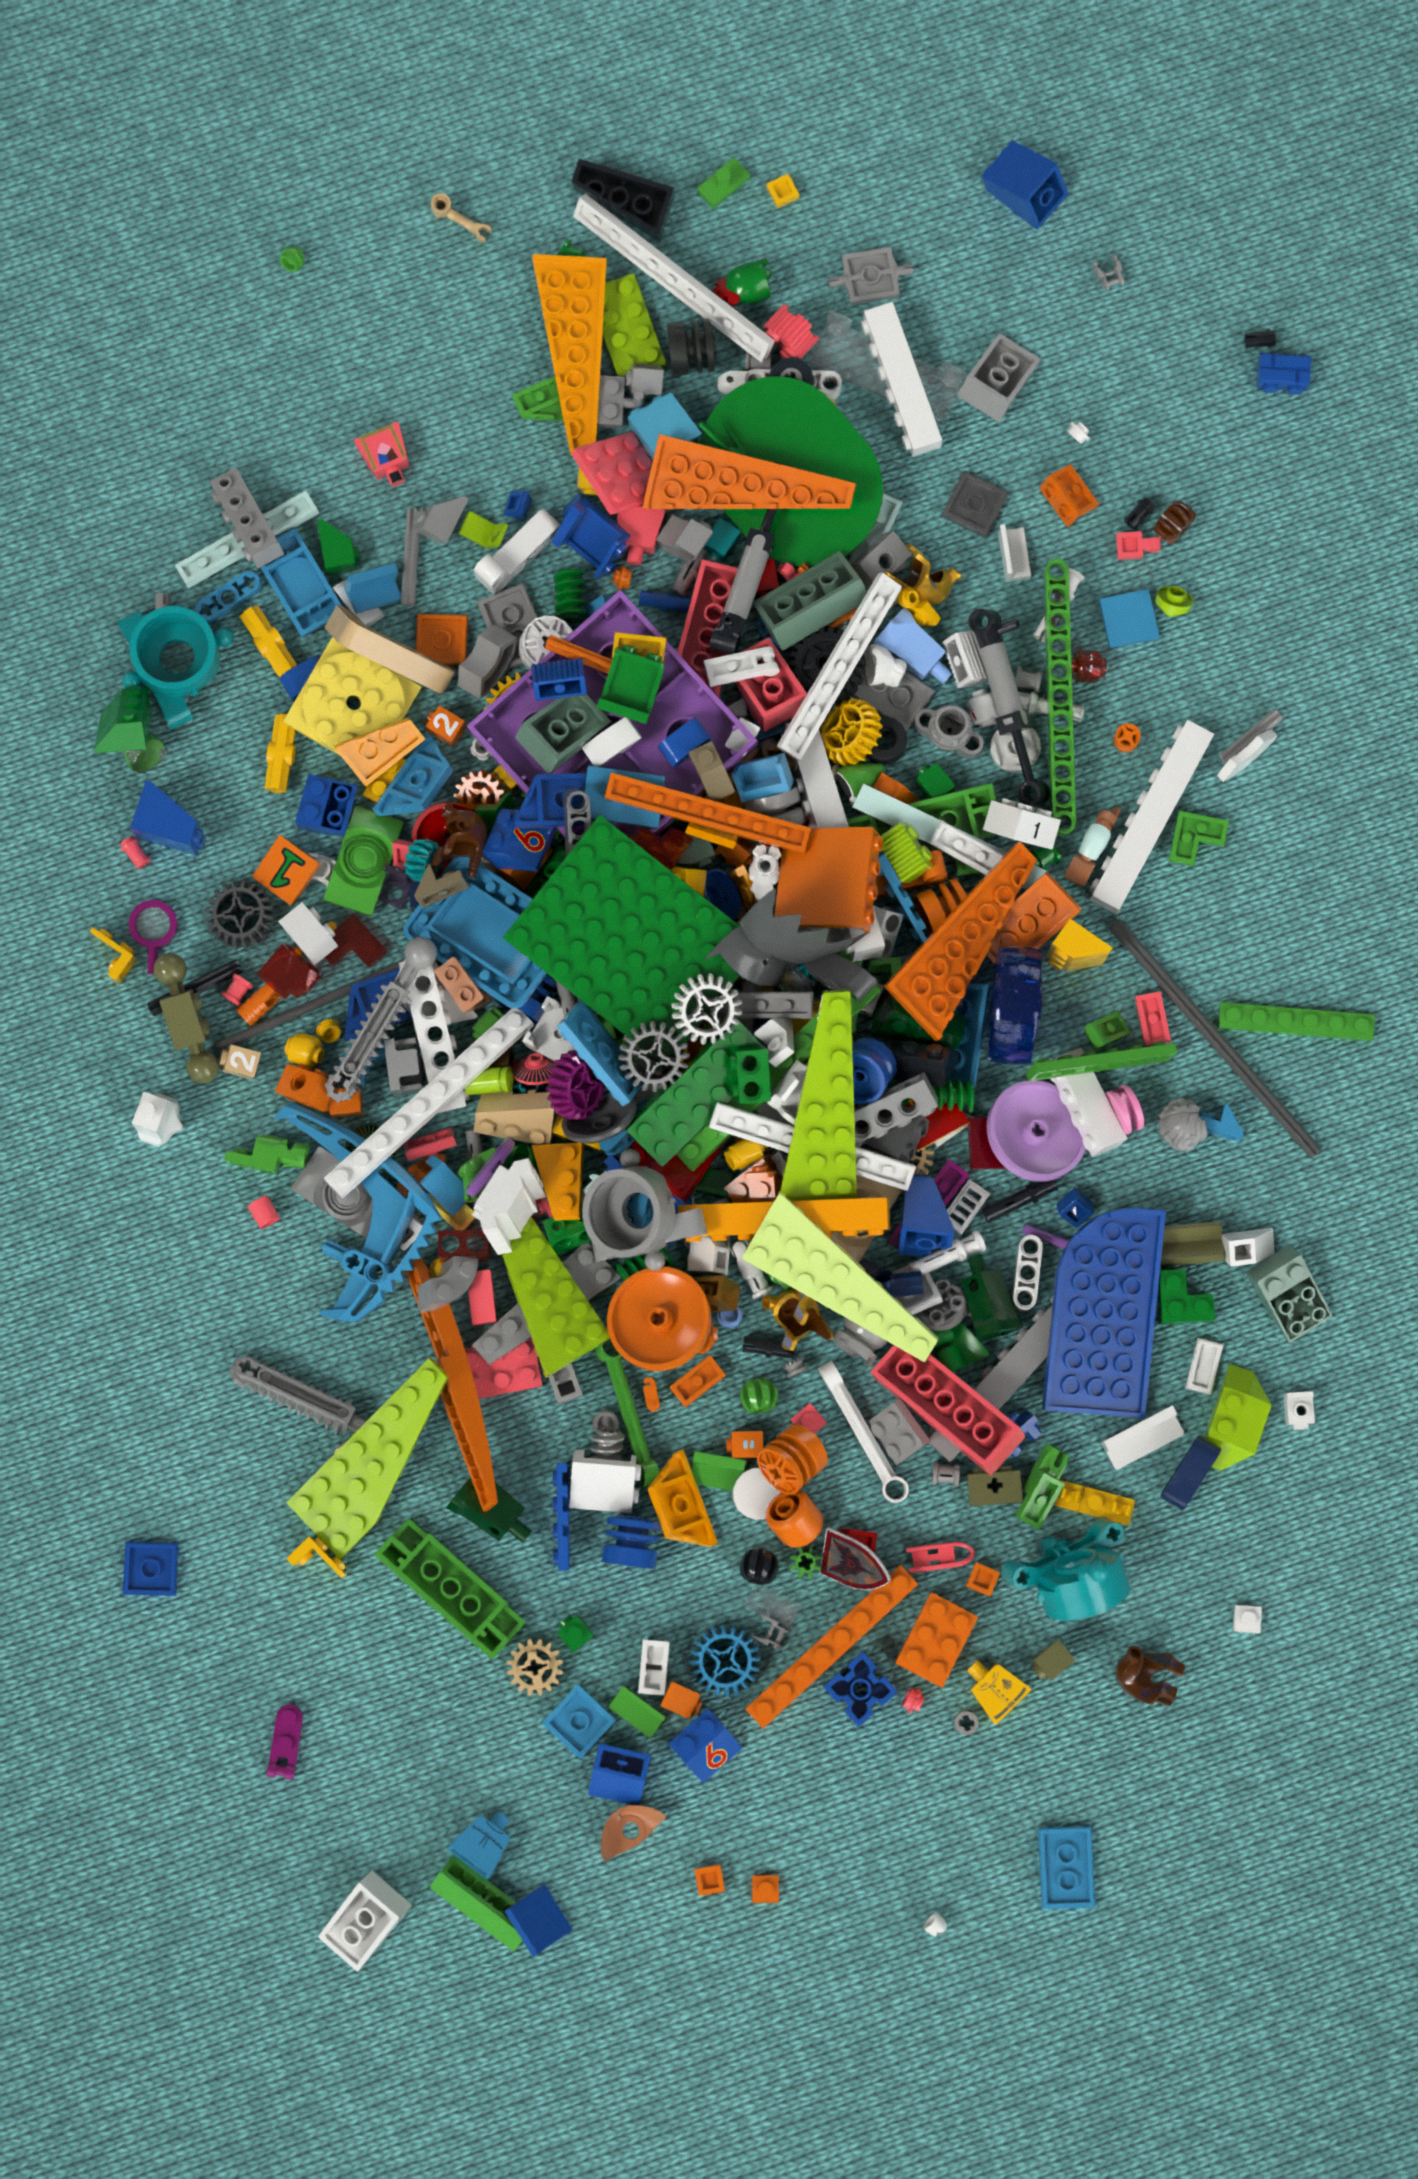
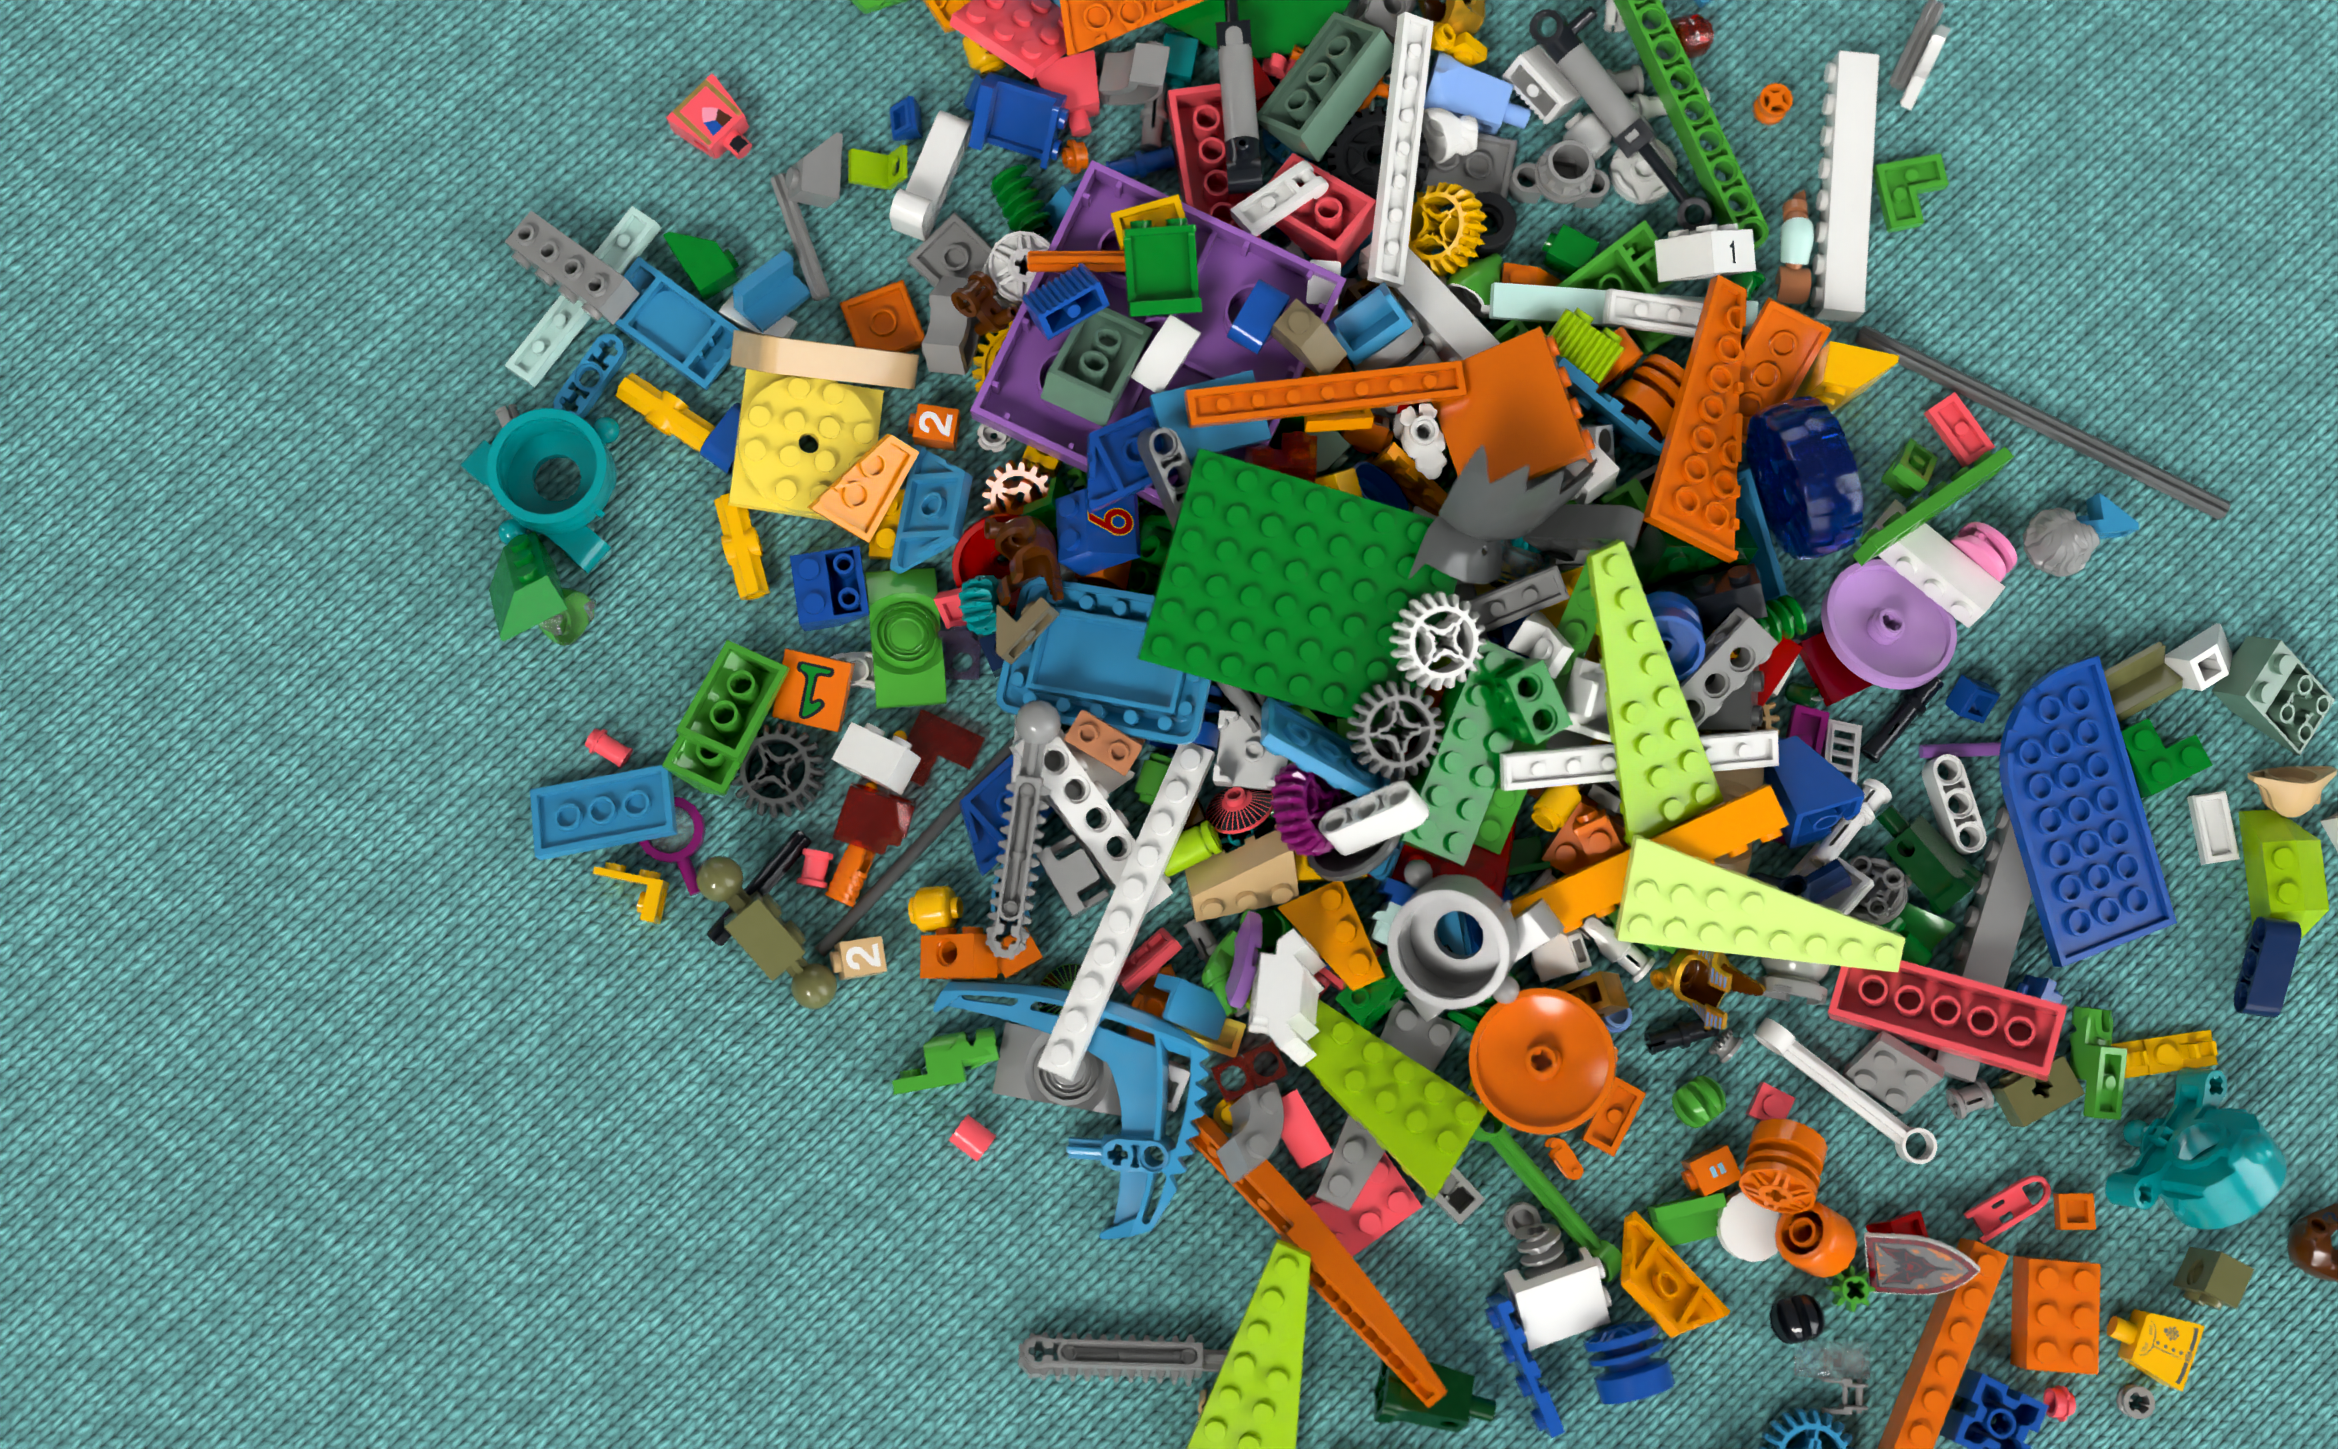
camera: 35 degrees left, 0 degrees up
(113, 893) = (603, 812): none -> dark azure plate
(157, 1118) = (784, 1076): white piece -> none
(165, 822) = (632, 693): blue slope -> none
(219, 864) = (724, 718): none -> bright green slope
(331, 1034) = (954, 870): yellow plate -> none
(507, 654) = (982, 304): none -> reddish brown piece
(612, 1108) = (1374, 818): none -> white beam
(957, 1154) = (1802, 694): none -> dark green piece
(1143, 1438) = (2182, 947): white panel -> none
(1269, 1362) = (2292, 789): none -> tan hat
(1296, 1021) = (2126, 362): bright green plate -> none

